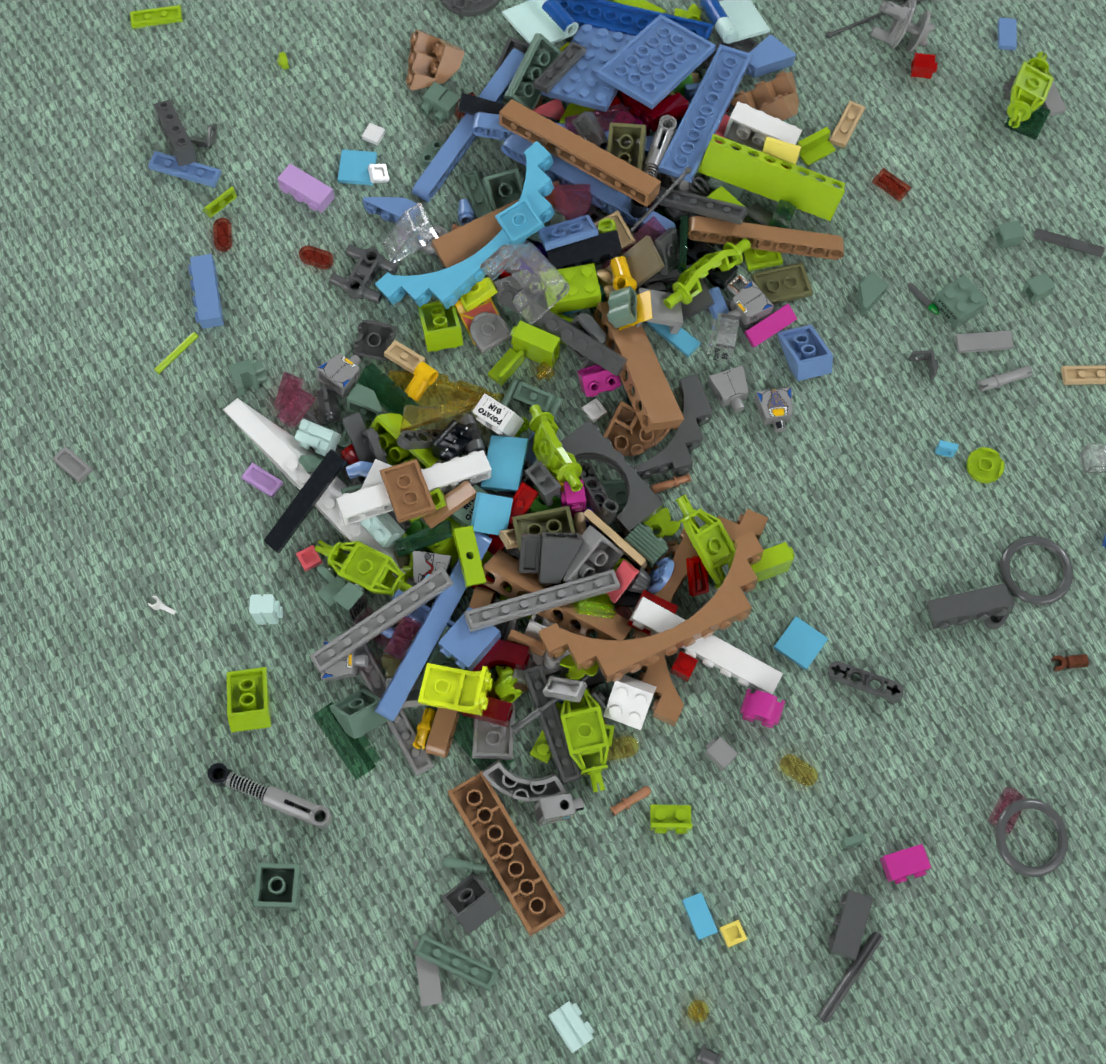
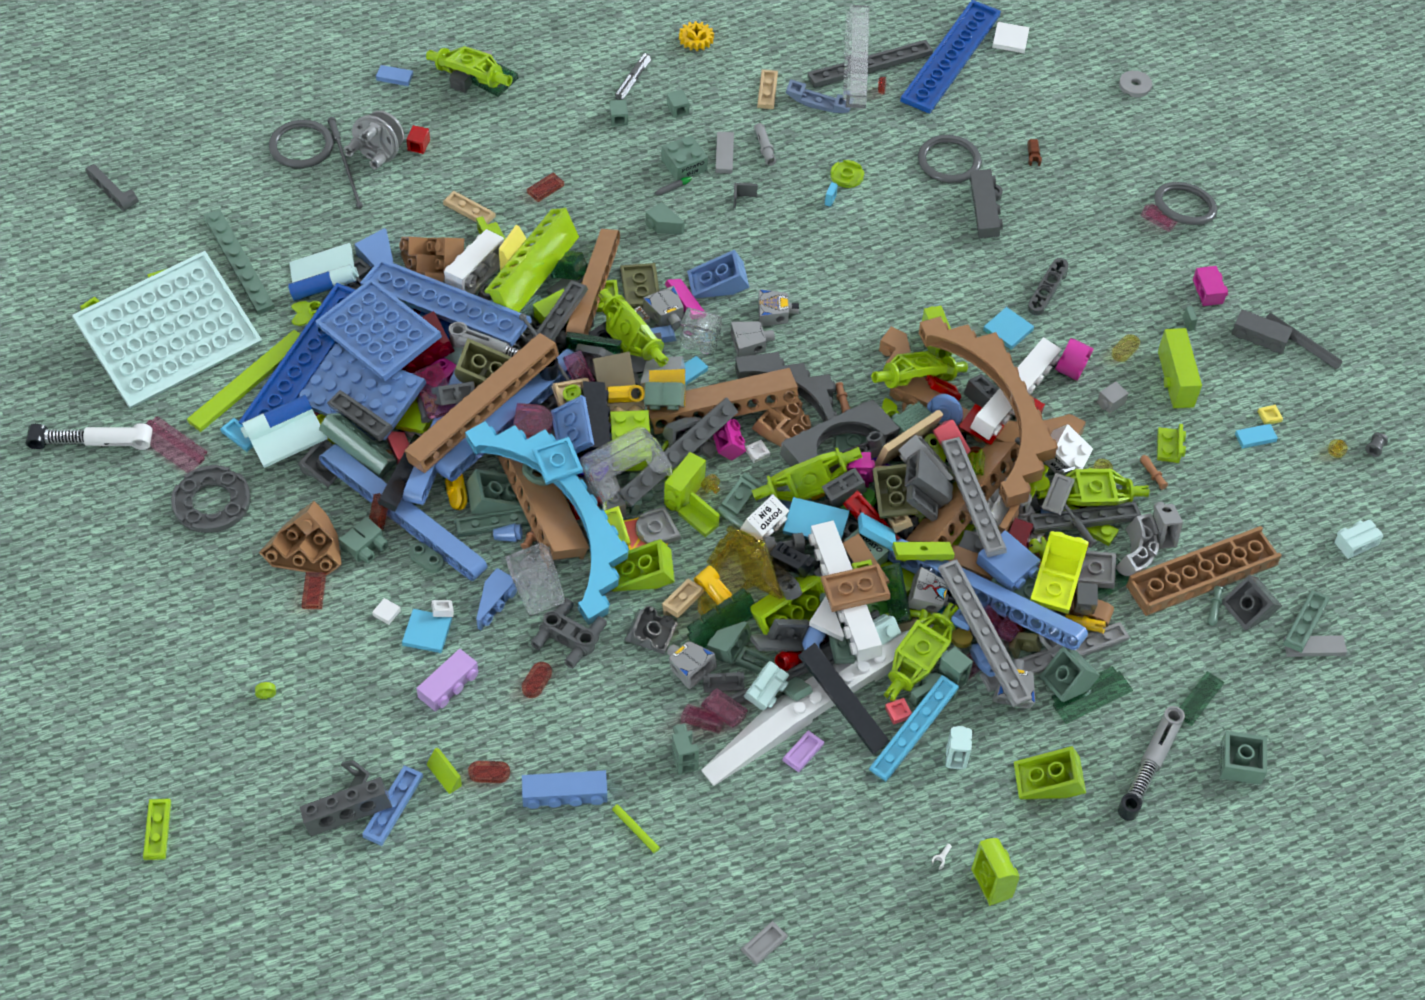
camera: 85 degrees left, 15 degrees down
(132, 645) = (994, 871): none -> lime brick
(287, 571) = (914, 728): none -> medium azure tile
(351, 847) = (1201, 697): none -> clear green tile
(388, 78) = (314, 590): none -> clear red tile
(440, 721) = (1086, 598): none -> dark grey brick
(506, 164) = (456, 493): none -> yellow arm
(770, 823) = (1179, 368): none -> lime brick
(1088, 418) = (816, 100): none -> sand blue slope

